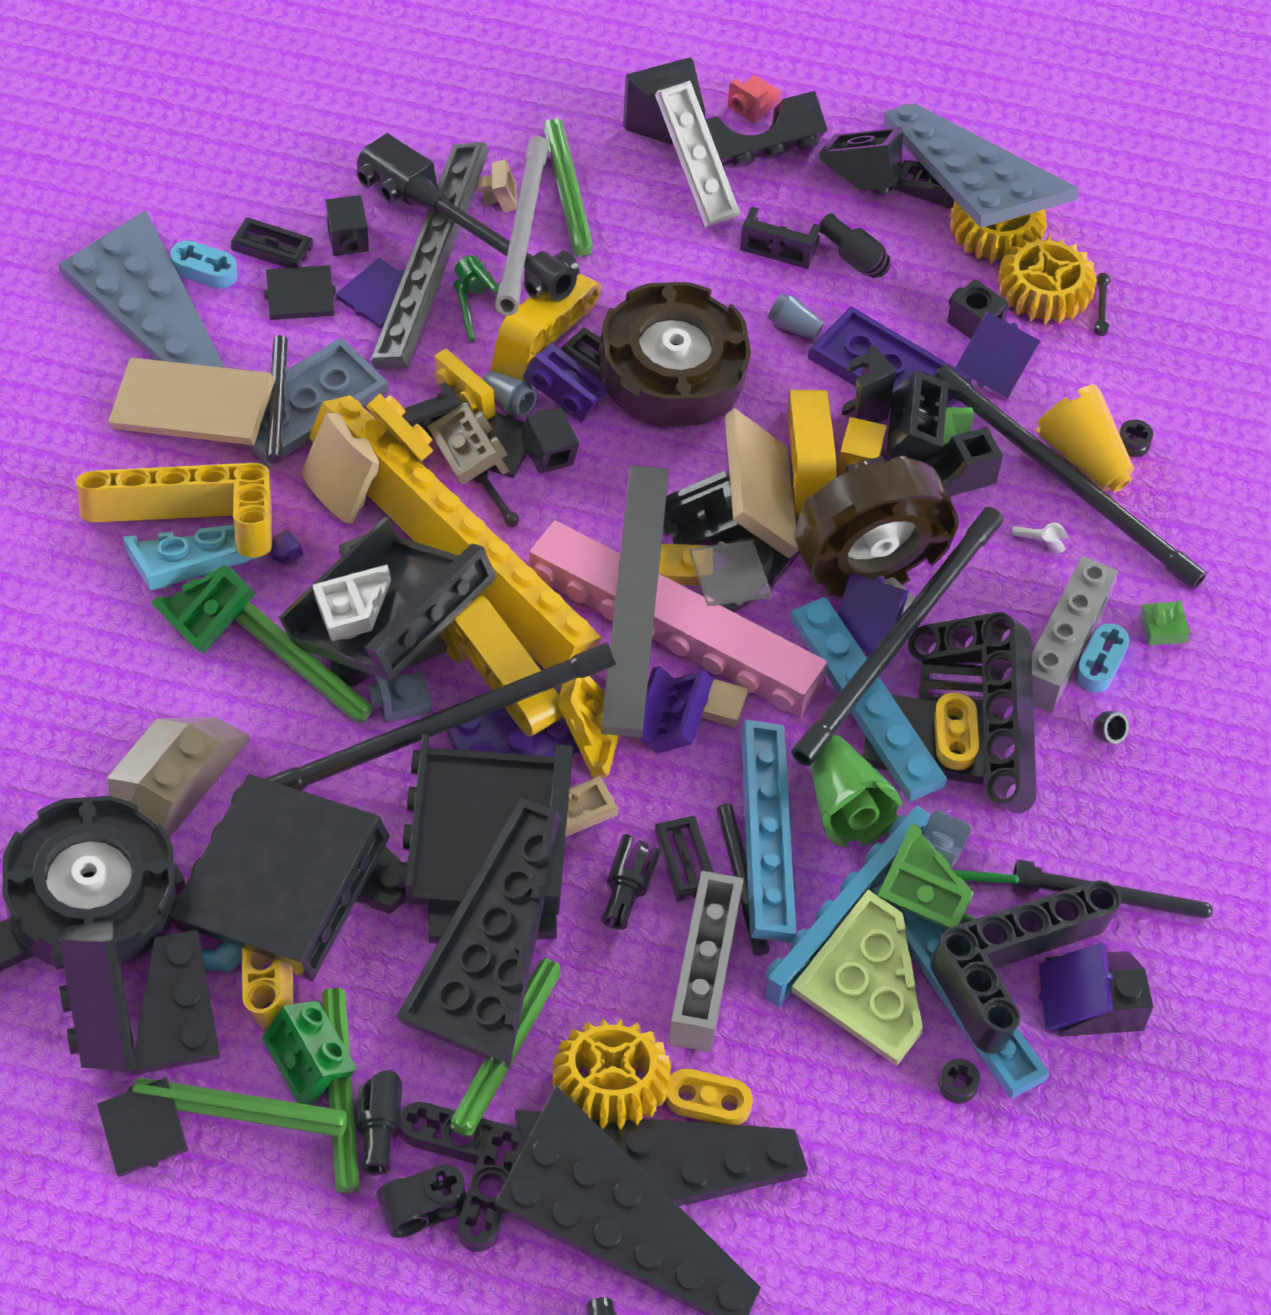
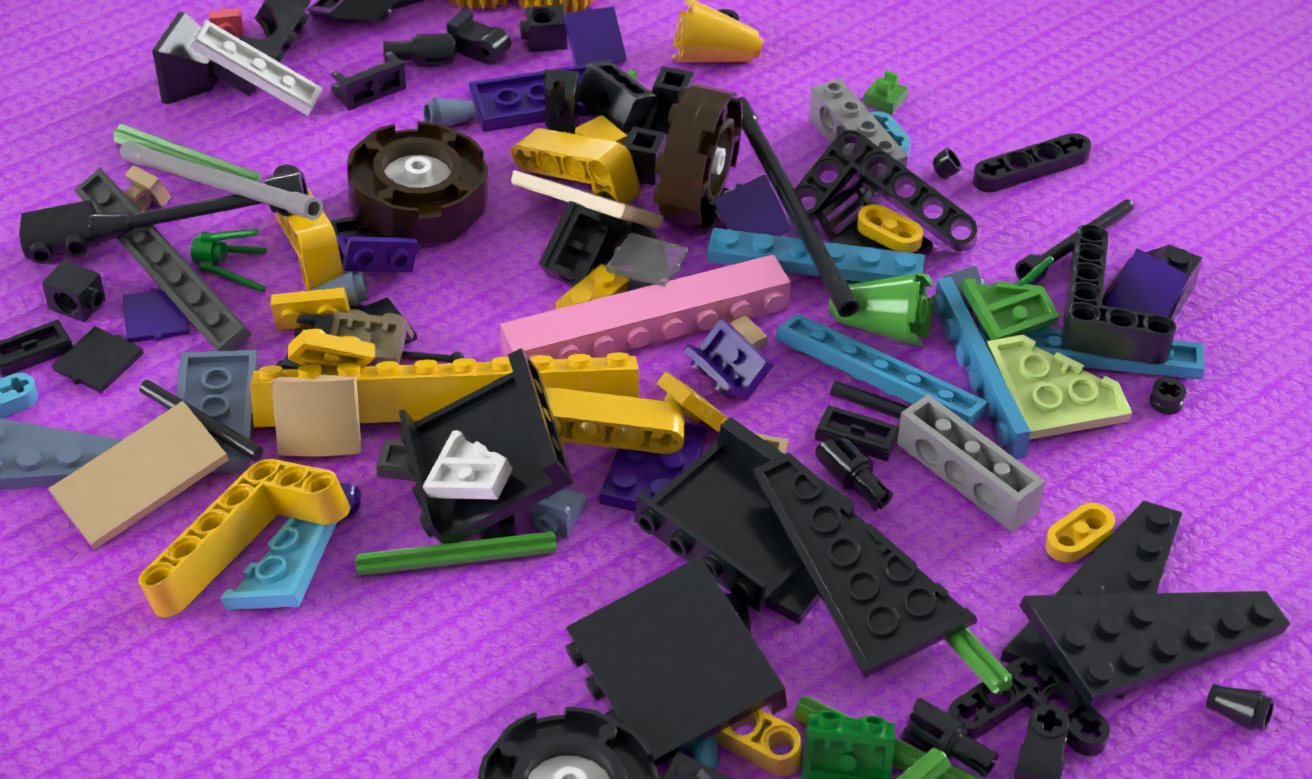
camera: 50 degrees left, 10 degrees down
(175, 766) = (486, 687): dark tan wedge -> none
(206, 606) = (354, 578): green wing -> none
(550, 440) = (415, 291): black brick -> none
(578, 666) = (674, 365): black piece -> none
(611, 1057) = (1020, 565): yellow gear -> none
(635, 602) = (626, 319): dark grey tile -> none
(911, 272) = (477, 39): none -> black leg
(1050, 535) = (764, 104): white hand -> none
(1174, 560) = (752, 64): black piece -> none
(1184, 802) = (997, 174): none -> beam

